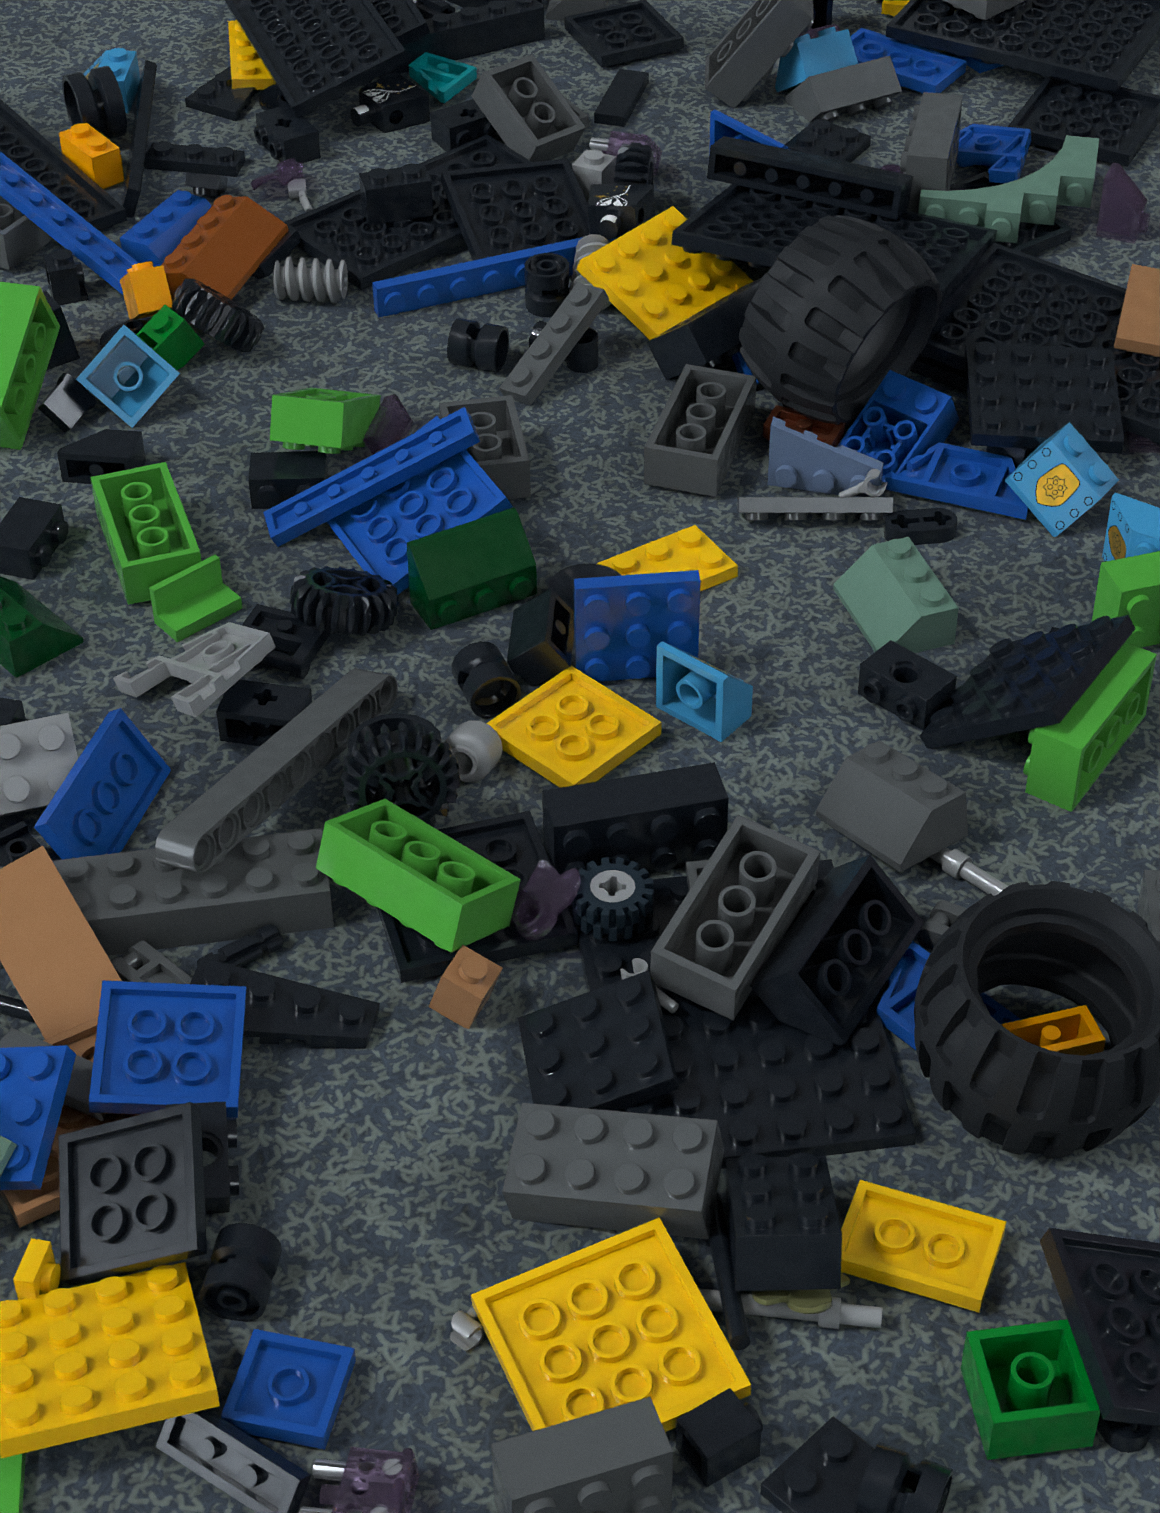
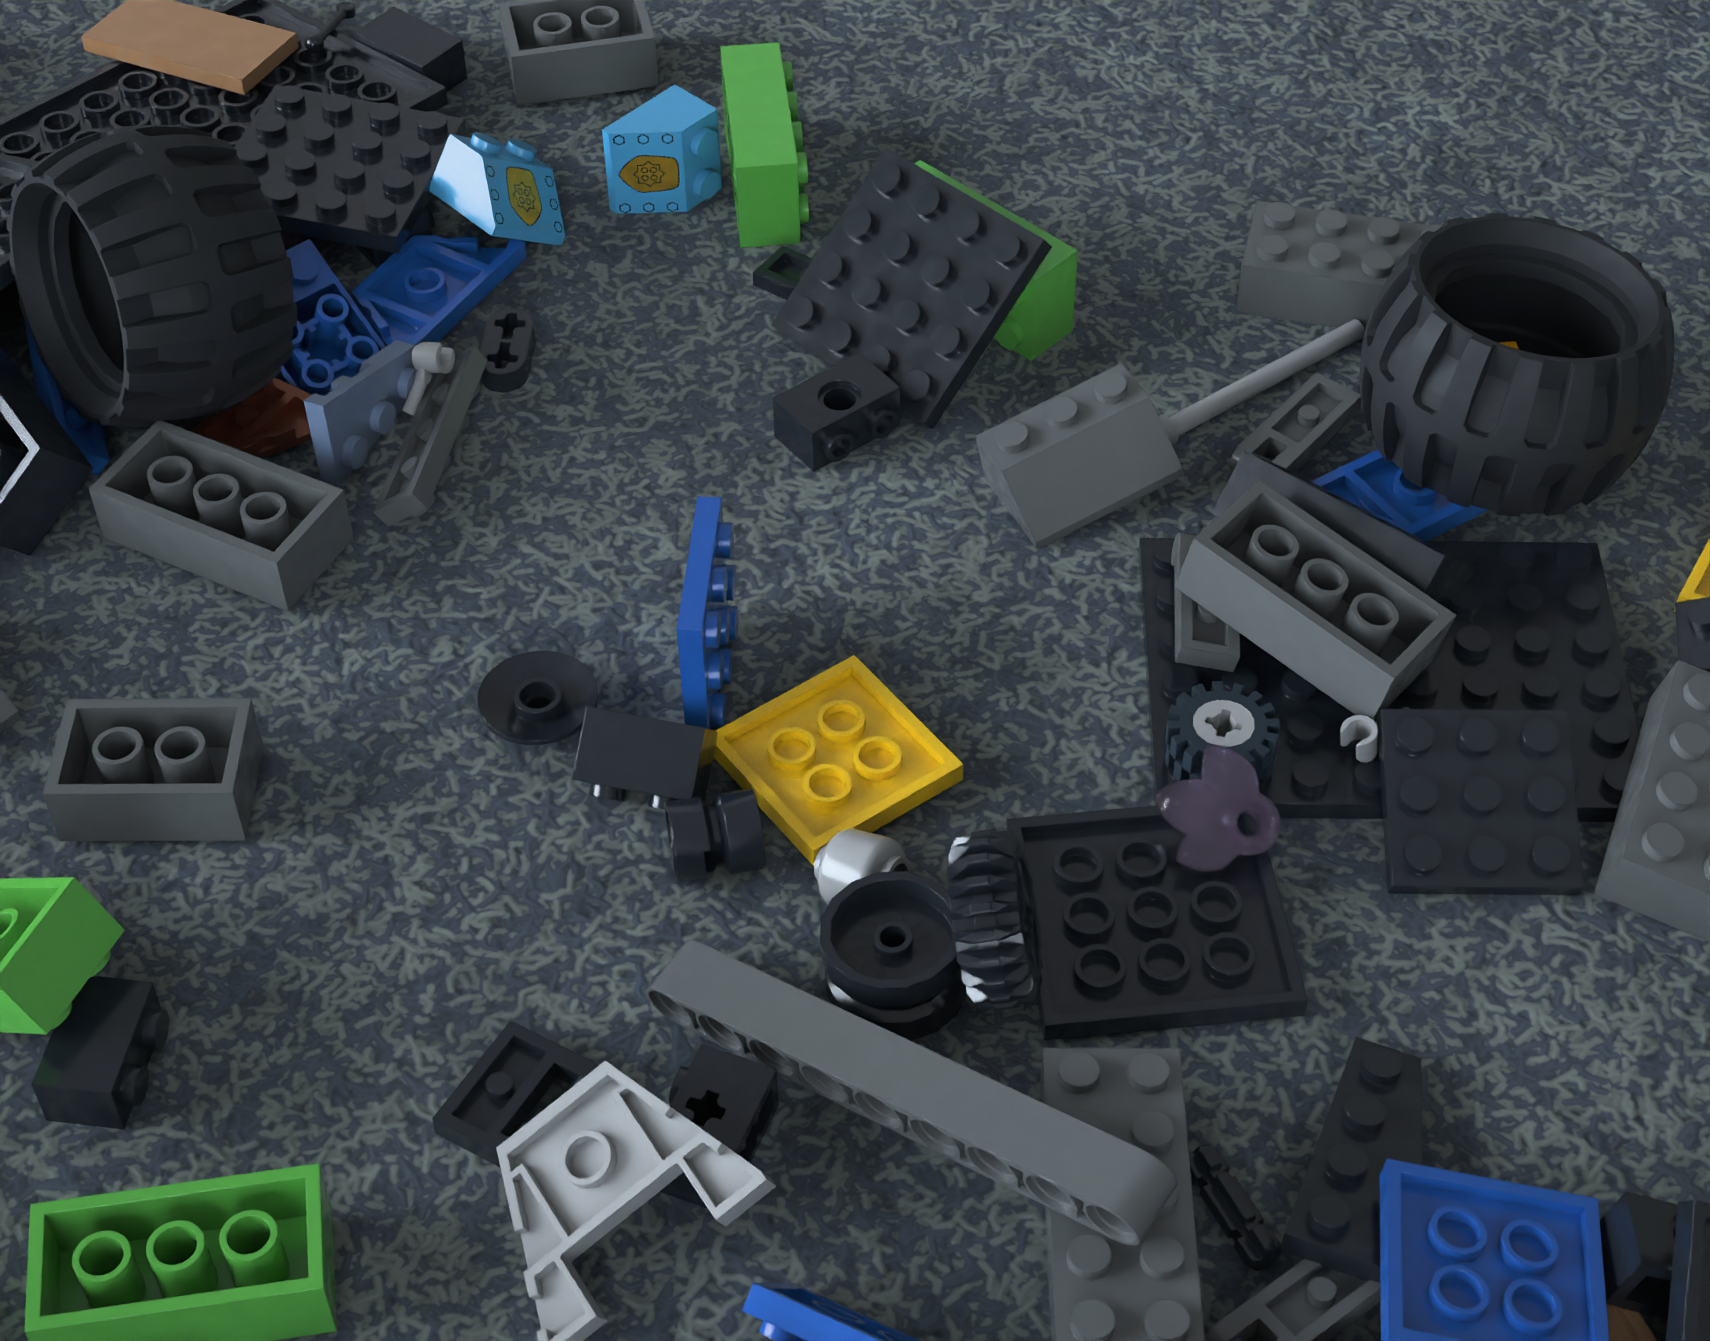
camera: 80 degrees left, 5 degrees up
(193, 599) = (388, 1219): bright green panel -> none
(343, 600) = (484, 987): black gear -> none
(371, 476) = (217, 904): blue plate -> none
(417, 874) = (1187, 926): bright green brick -> none
(422, 505) = (292, 867): blue plate -> none
(465, 987) = (1355, 924): medium nougat brick -> none
(470, 569) = (474, 820): dark green slope -> none
(643, 818) = (1088, 693): black brick -> none
(679, 551) = (499, 606): yellow plate -> none
(700, 693) = (812, 601): dark azure slope -> none
(898, 598) = (667, 390): sand green slope -> none

